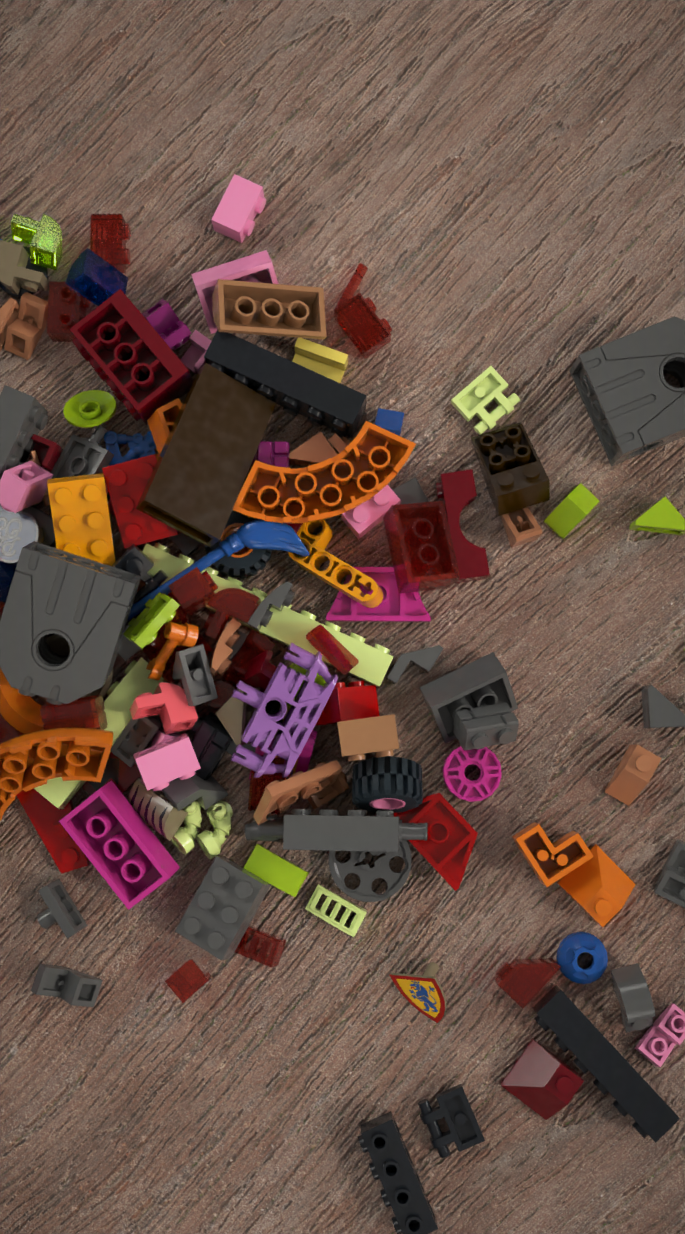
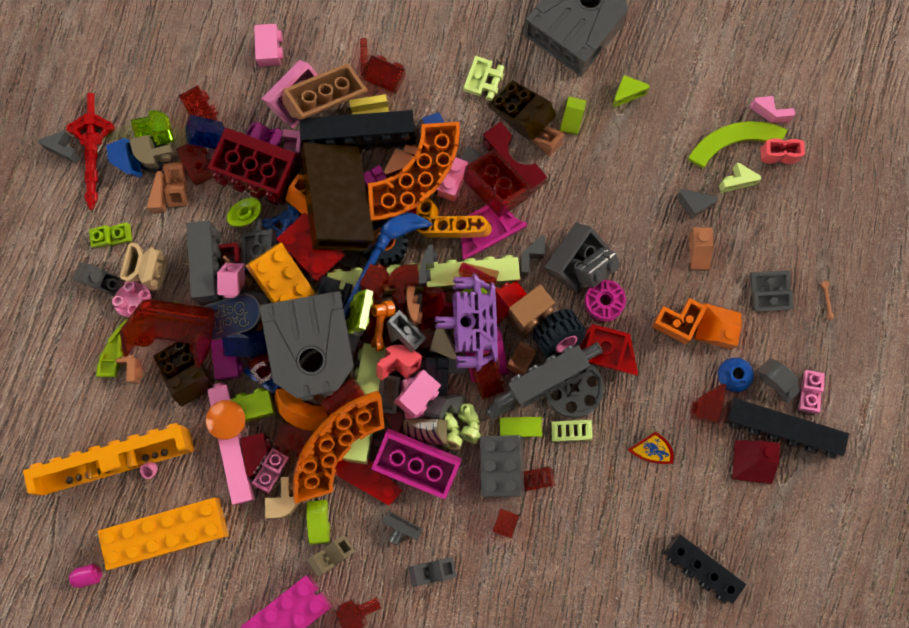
camera: 30 degrees left, 5 degrees down
(284, 793) = (507, 362): nougat wing -> none
(459, 1118) = (720, 513): black plate -> none

